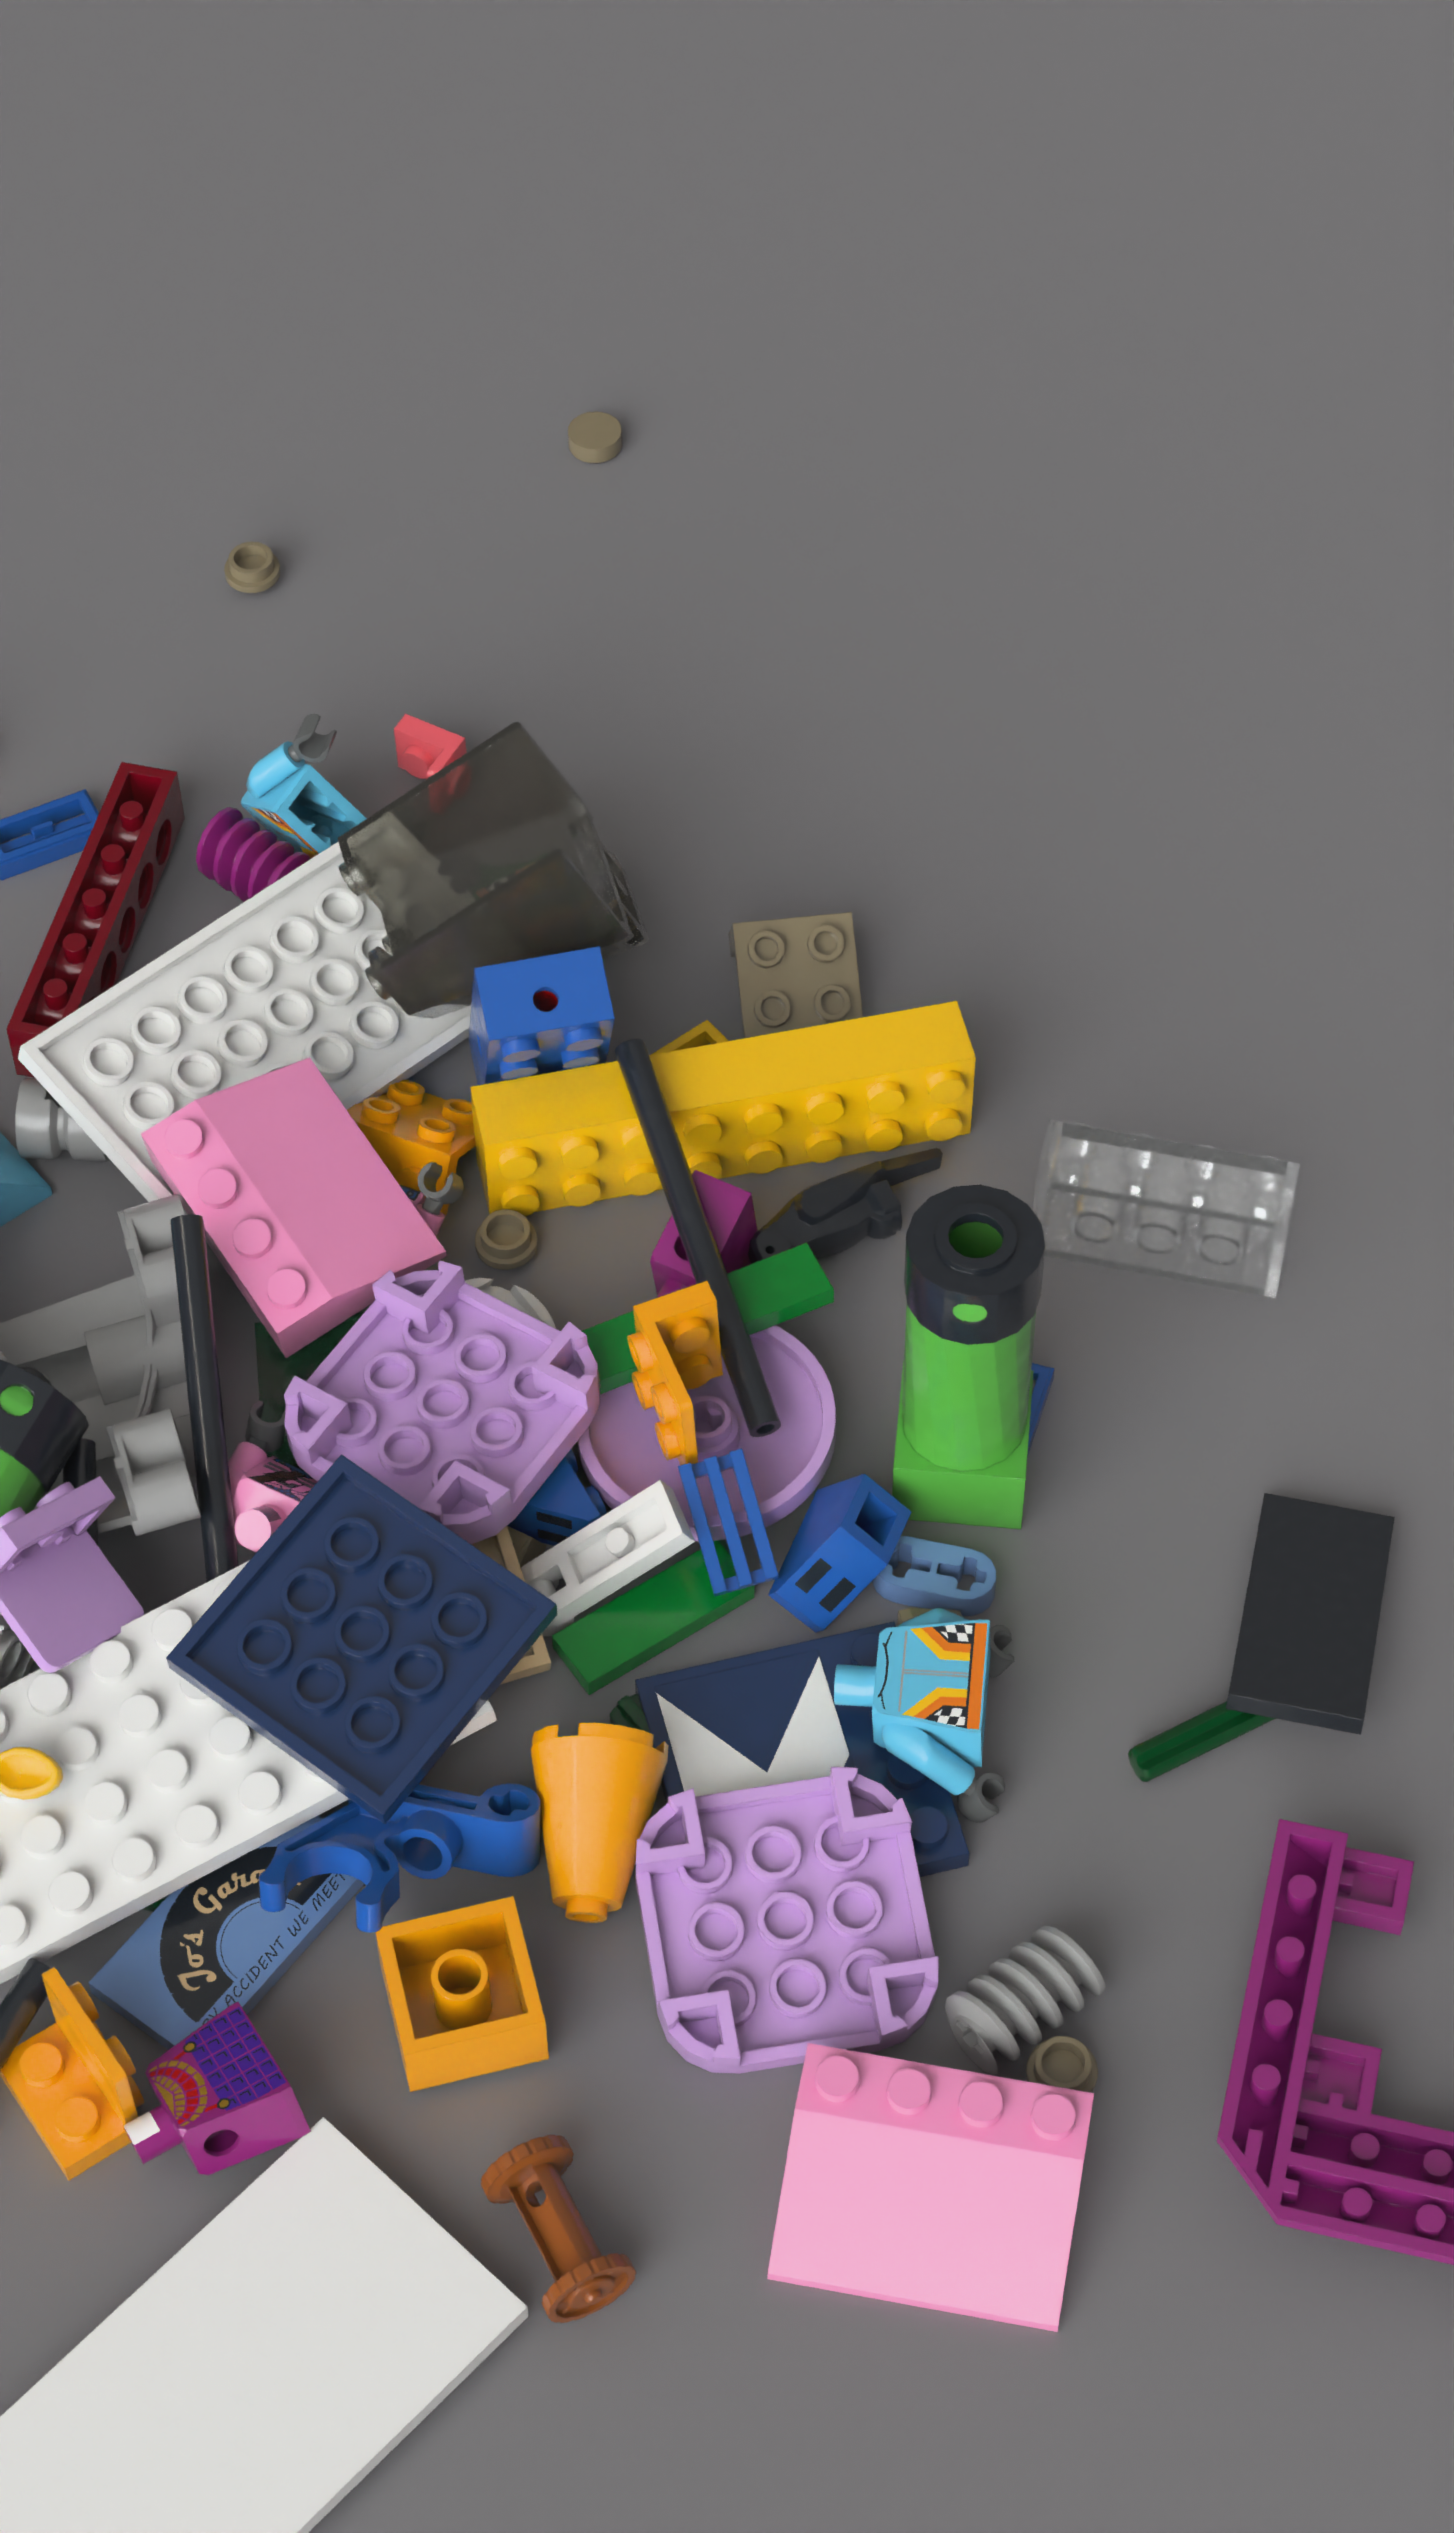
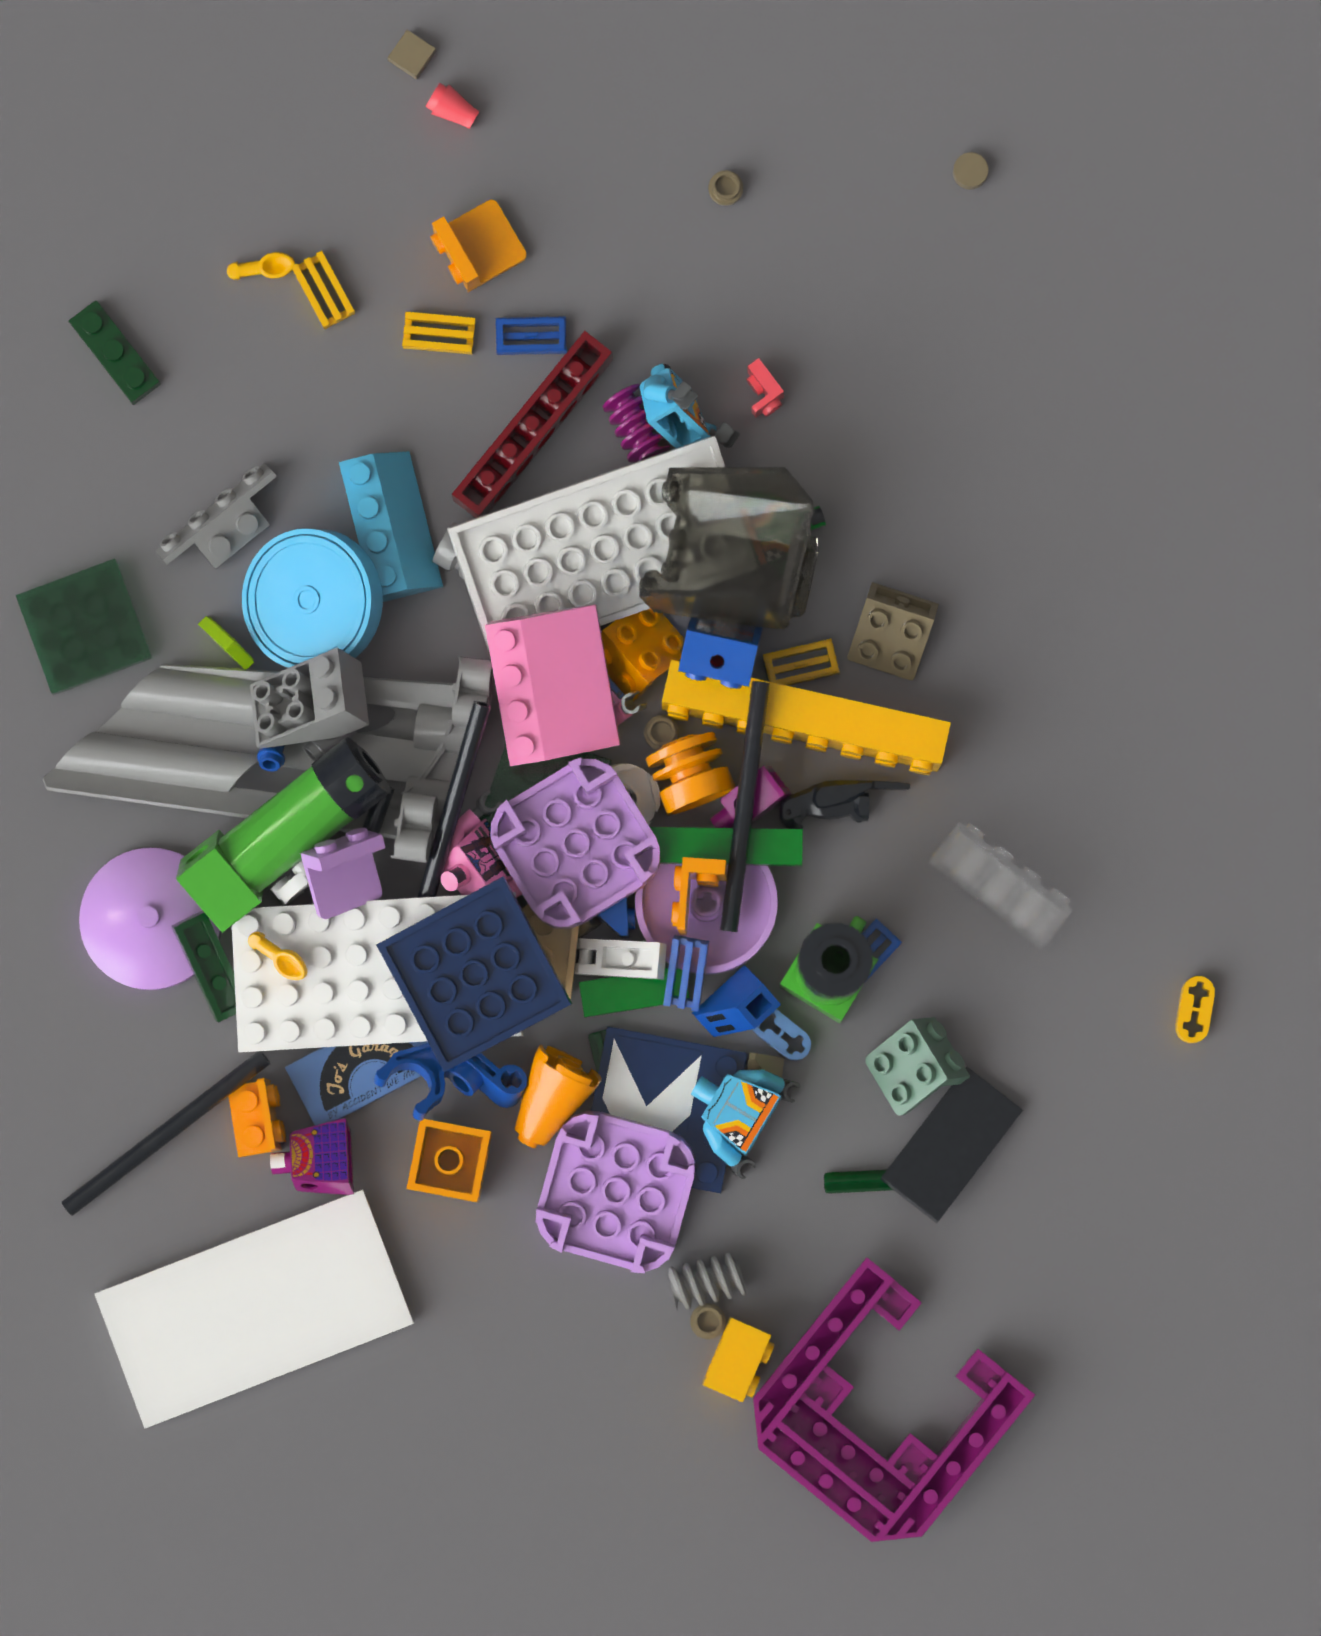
camera: 25 degrees right, 30 degrees up
(580, 1250) = (690, 773): none -> light orange wheel
(581, 2274) = (443, 1294): dark orange hose -> none
(931, 2187) = (618, 1352): bright pink slope -> none
(1154, 2088) = (737, 1360): none -> yellow brick
(1178, 1518) = (915, 1064): none -> sand green bracket

